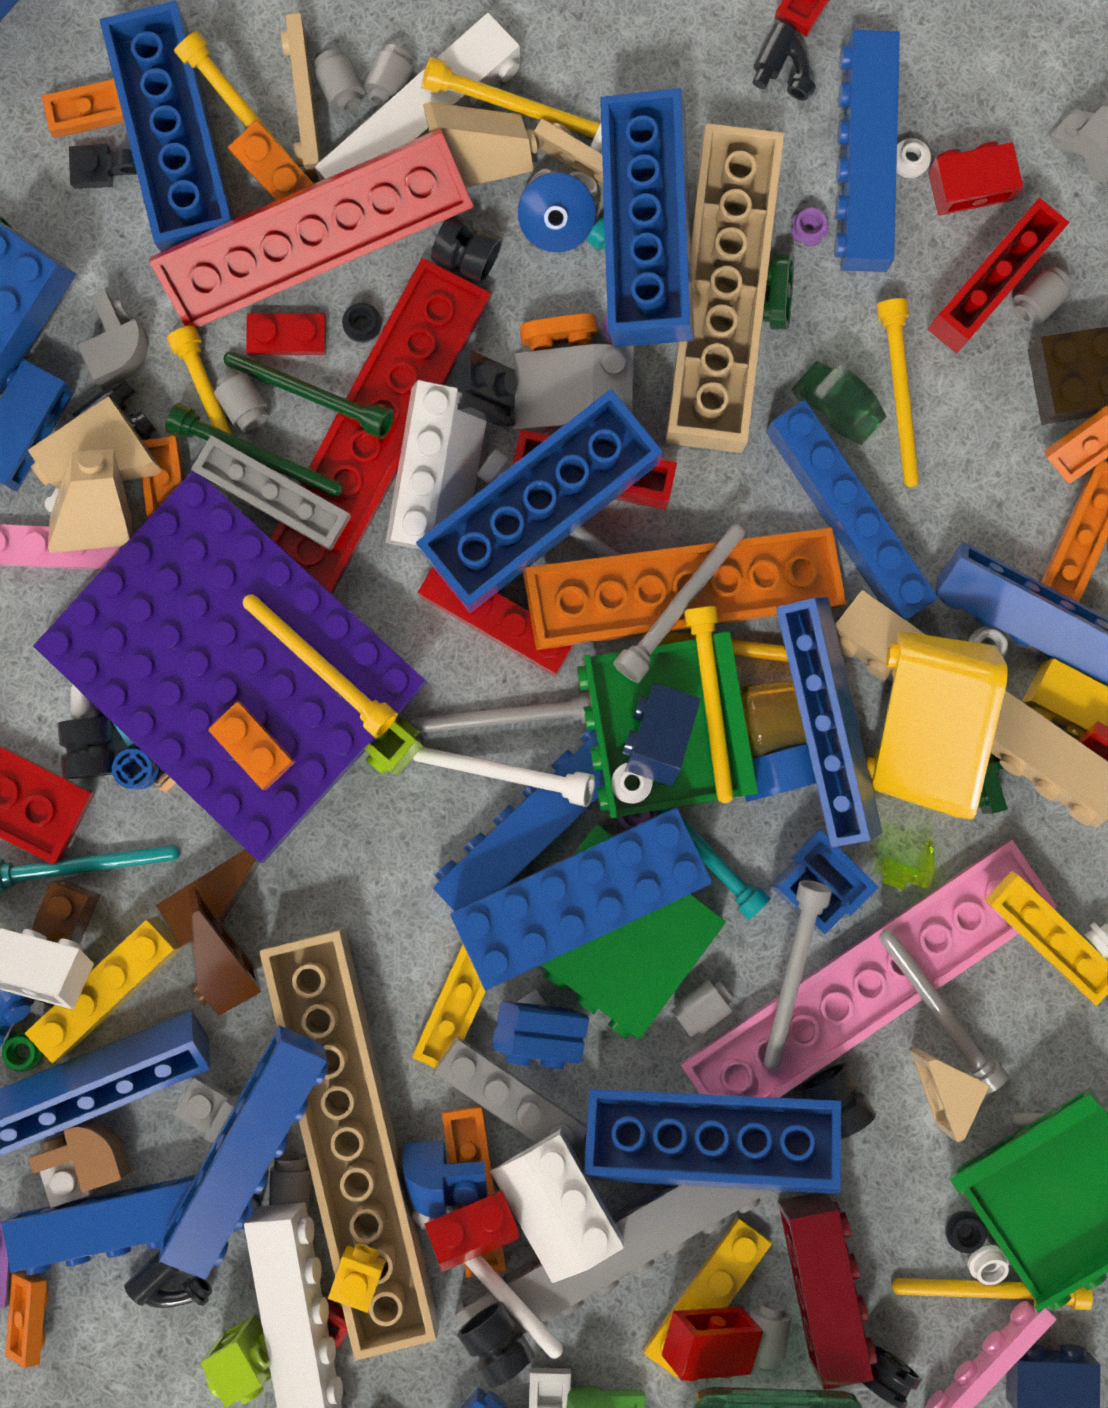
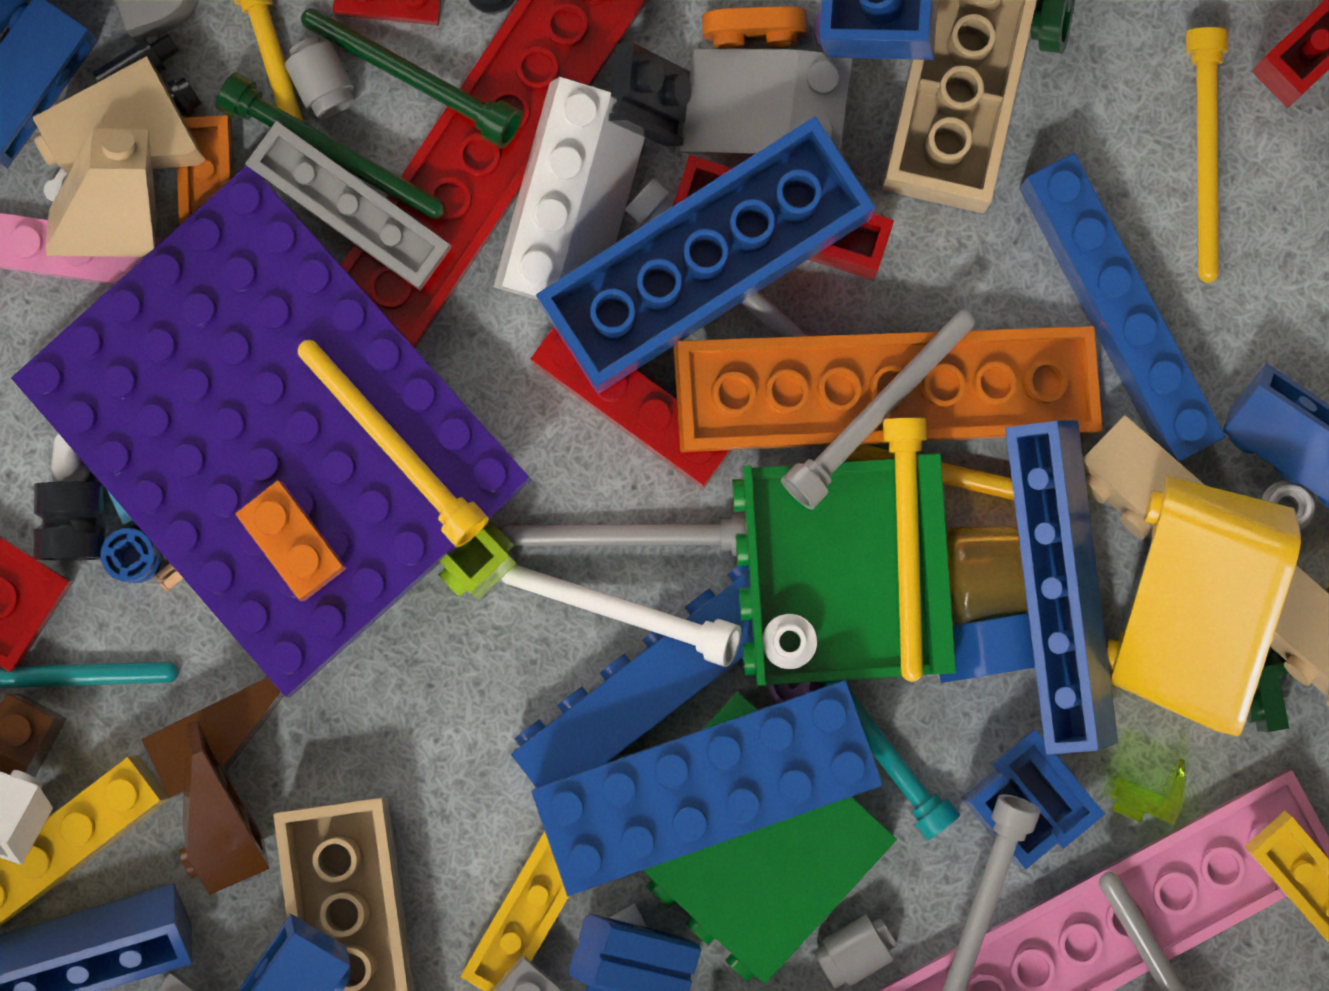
camera: 10 degrees right, 0 degrees up
(662, 734) = (836, 582): dark blue brick -> none
(843, 399) = (1125, 155): clear green brick -> none

